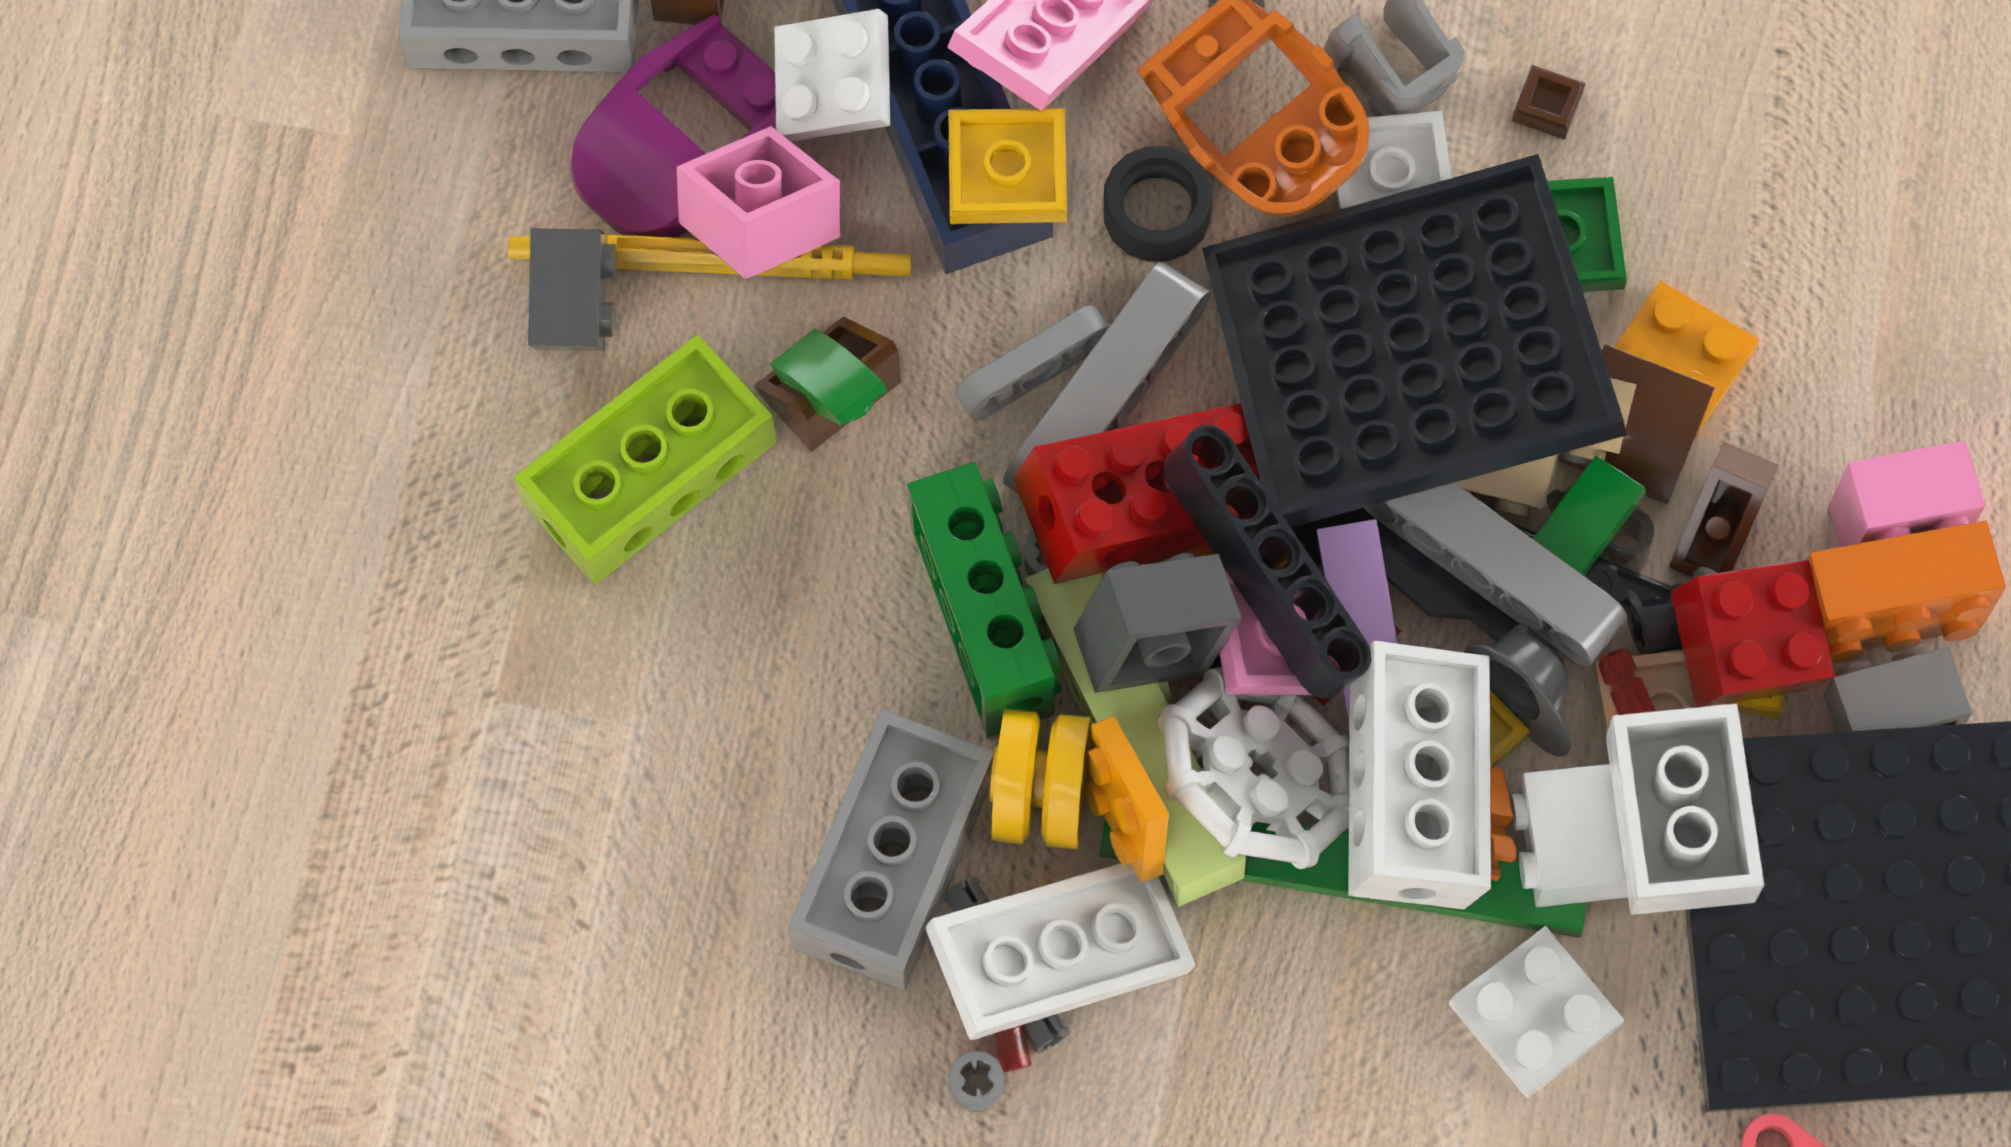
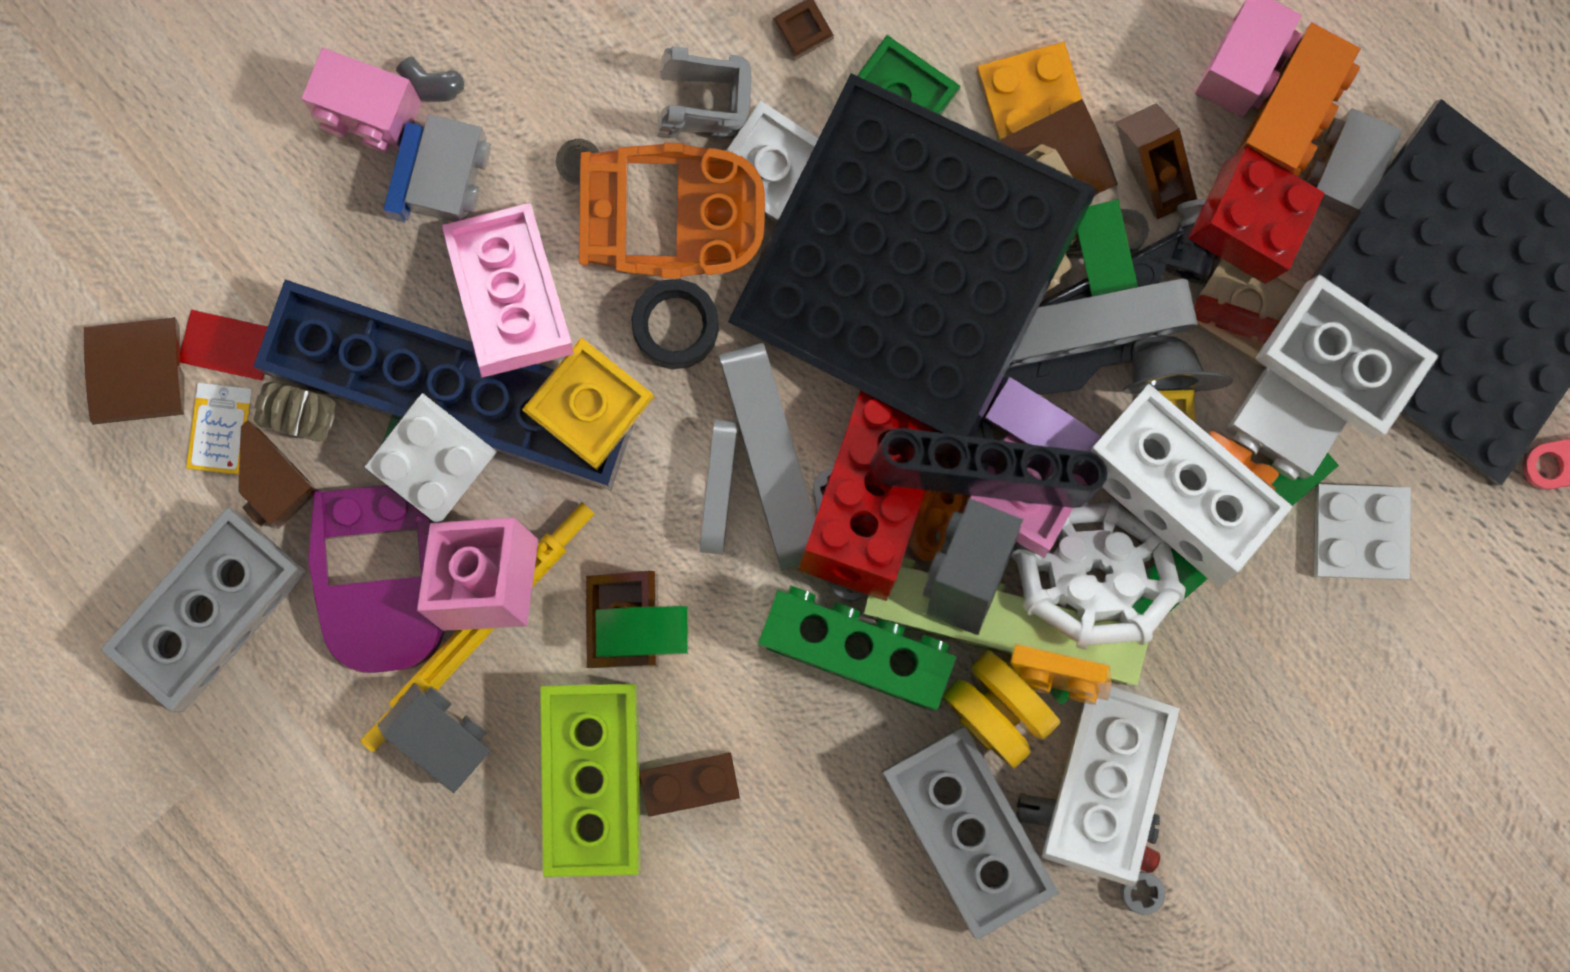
camera: 55 degrees left, 15 degrees up
(719, 564) = (689, 784): none -> reddish brown plate

